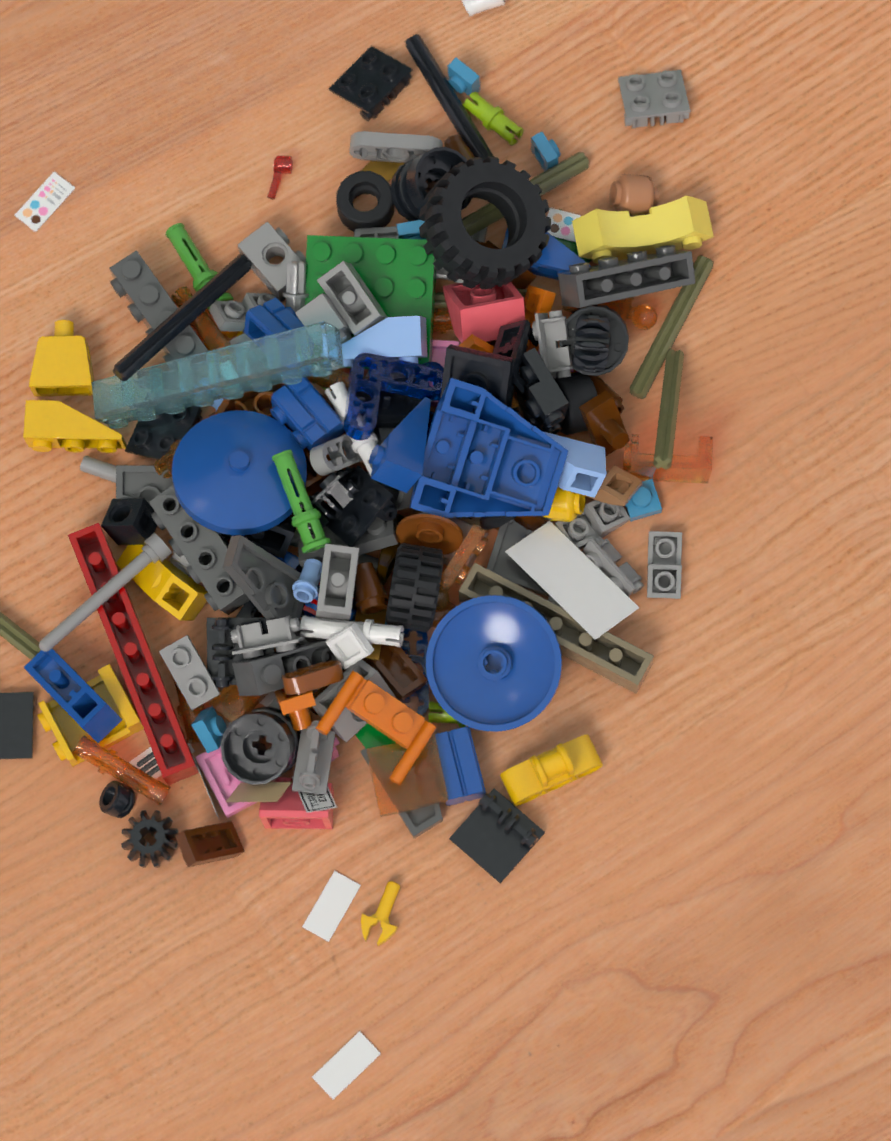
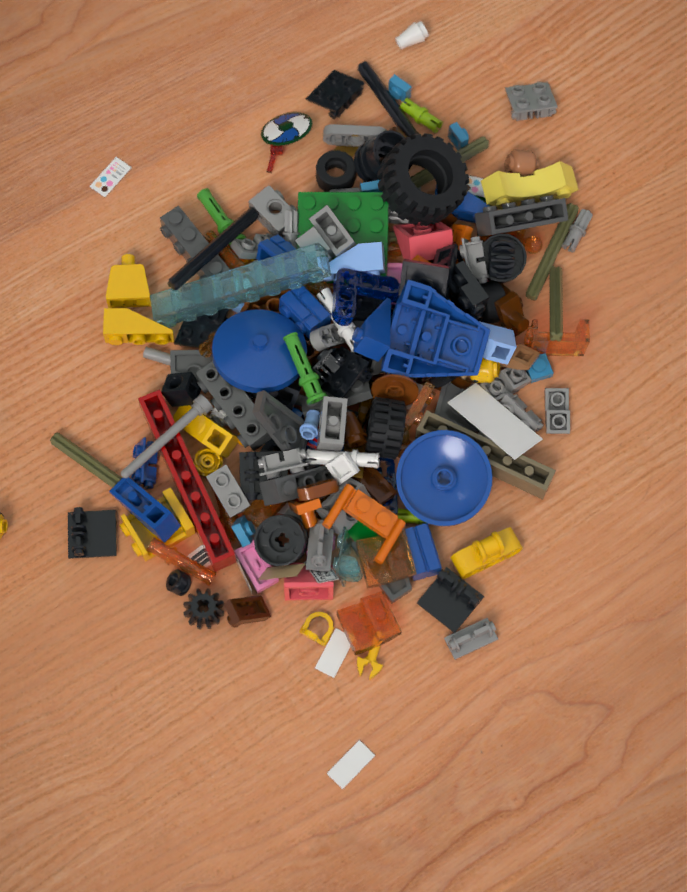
camera: 10 degrees left, 5 degrees down
(77, 641) = (145, 474): none -> blue hinge
(153, 628) = (207, 455): none -> yellow plate
(297, 136) = (286, 129): none -> shield
(319, 885) = (309, 634): none -> yellow piece
(347, 784) = (346, 565): none -> clear light blue hinge
(380, 866) = (369, 623): none -> clear orange slope
(523, 892) = (471, 638): none -> light grey hinge
(709, 296) = (577, 230): none -> light grey axle

